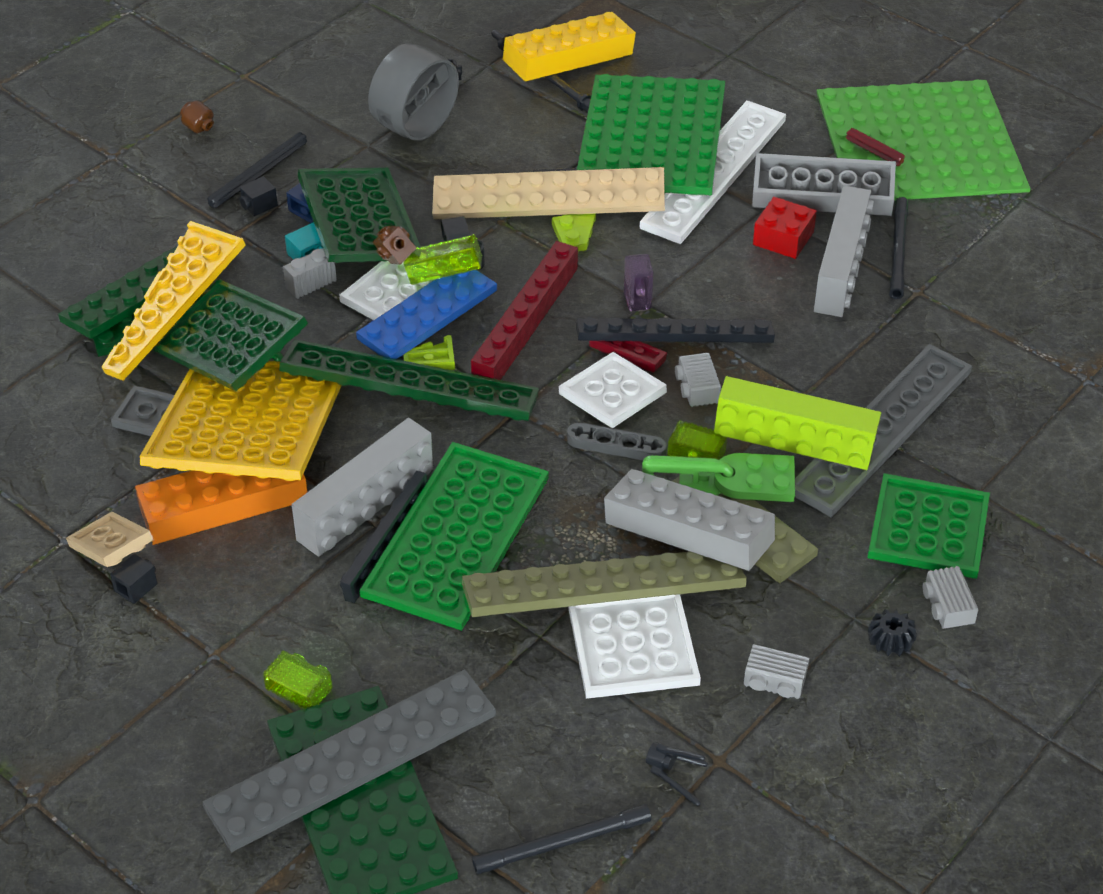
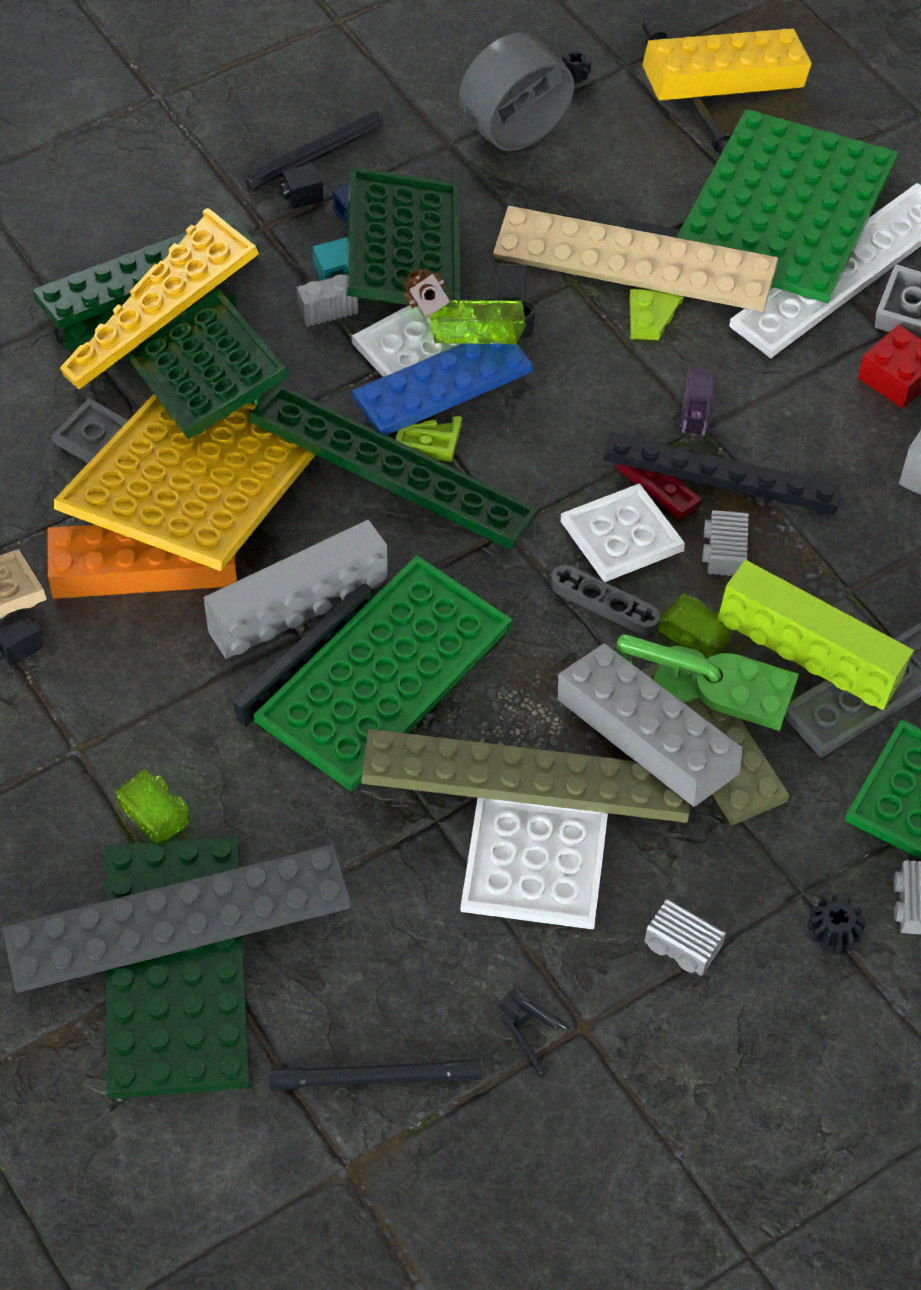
camera: 15 degrees right, 10 degrees up
(197, 116) = (266, 65): reddish brown head -> none
(526, 312) = (555, 408): dark red brick -> none

